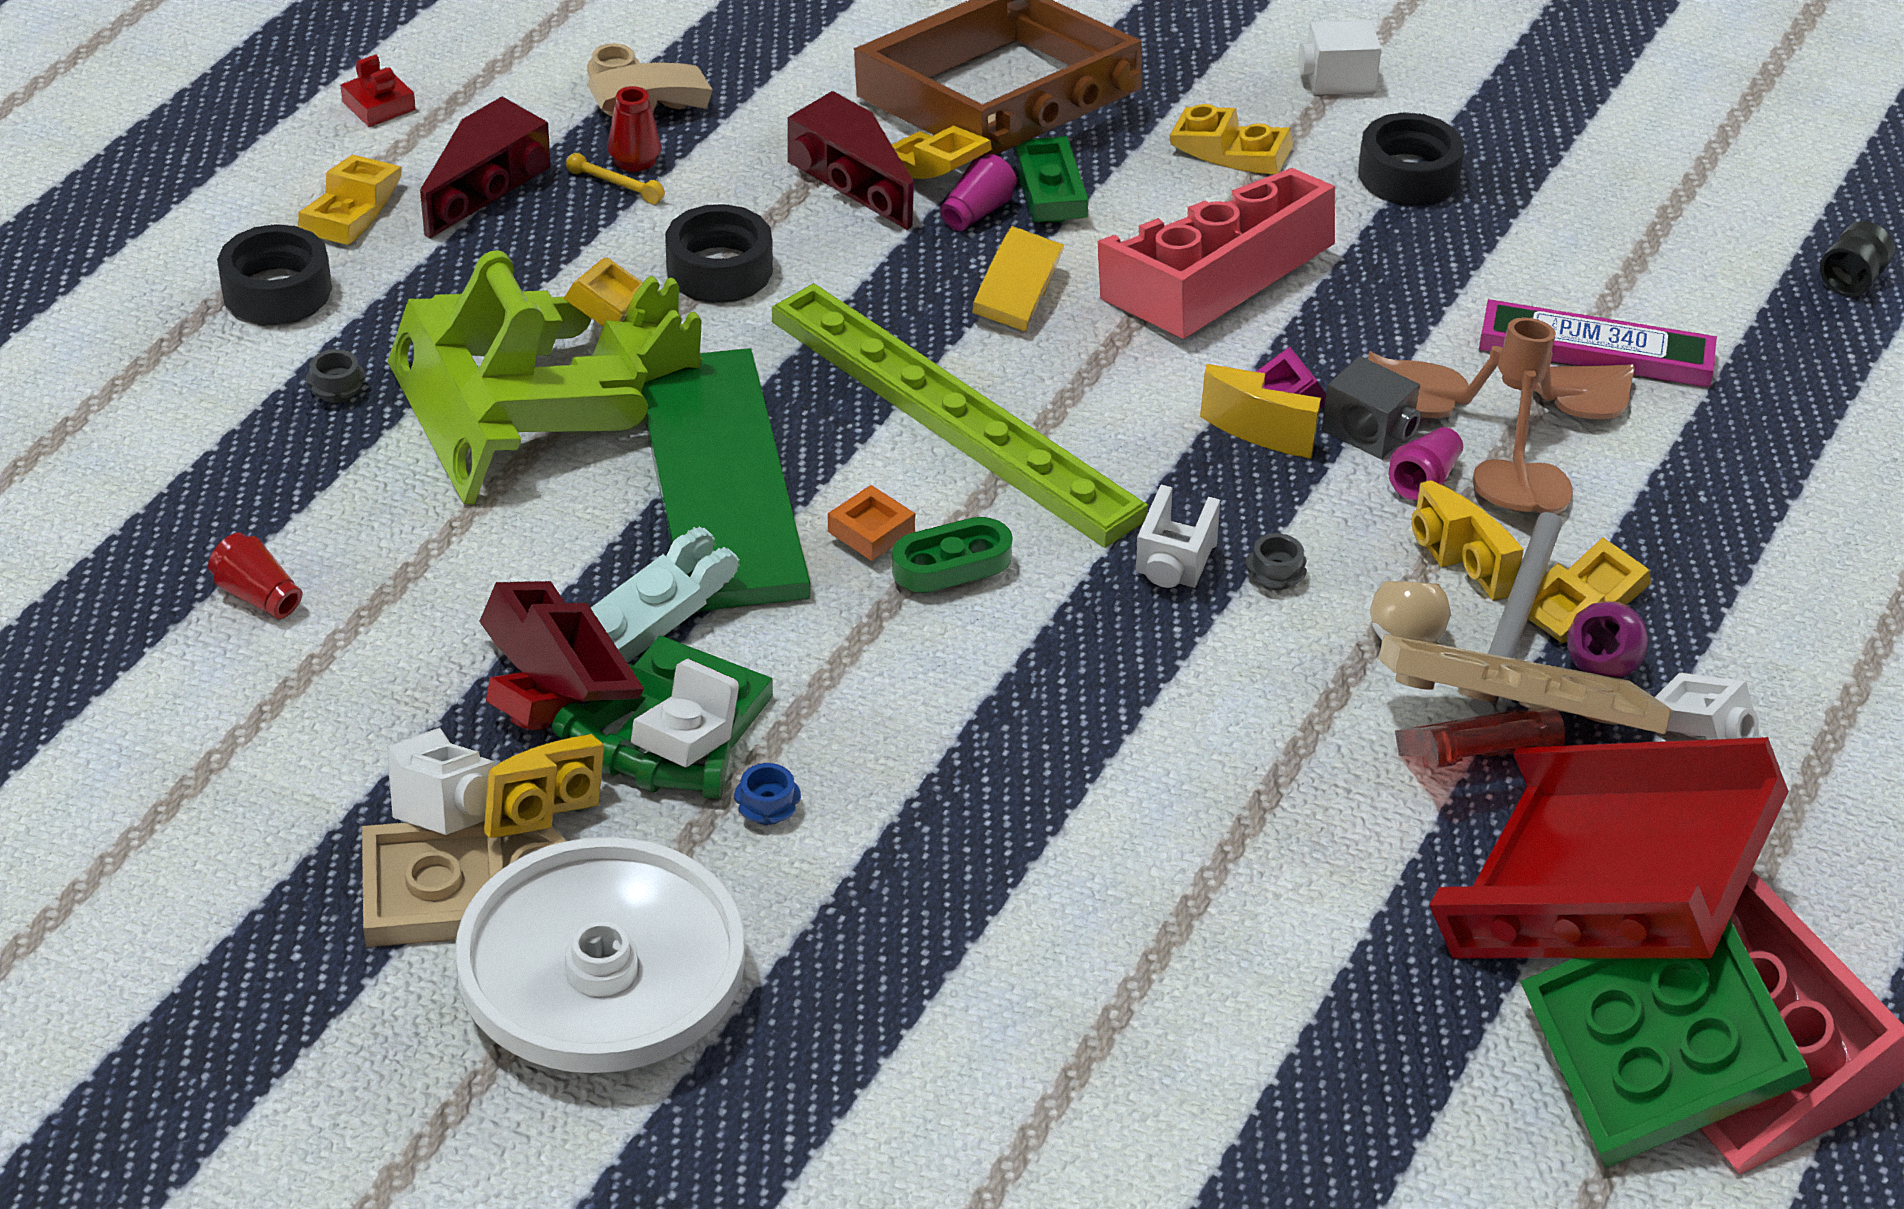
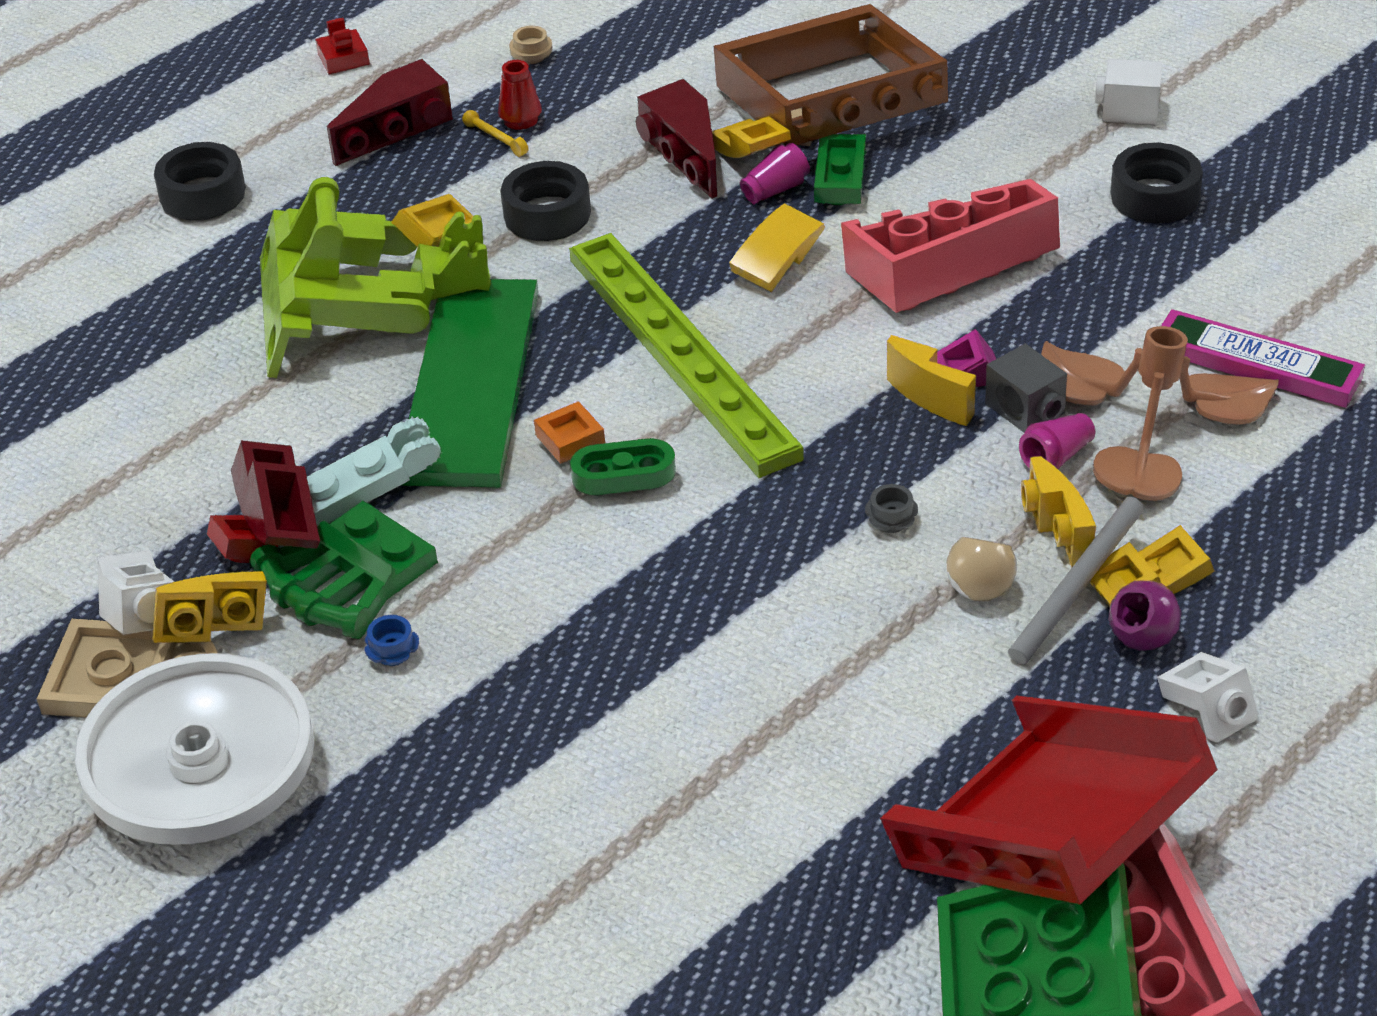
camera: 20 degrees right, 0 degrees up
(253, 574) = (79, 411): red cone -> none
(335, 375) = (210, 264): dark grey plate -> none
(352, 199) = (289, 128): yellow slope -> none
(669, 83) = (565, 61): tan slope -> none
(692, 719) = (344, 574): white bracket -> none
(1174, 551) = (806, 486): white window -> none
(1217, 138) = (1001, 150): yellow slope -> none
(1490, 734) = (1005, 680): clear red plate -> none
(1530, 683) = (1054, 642): tan wing -> none

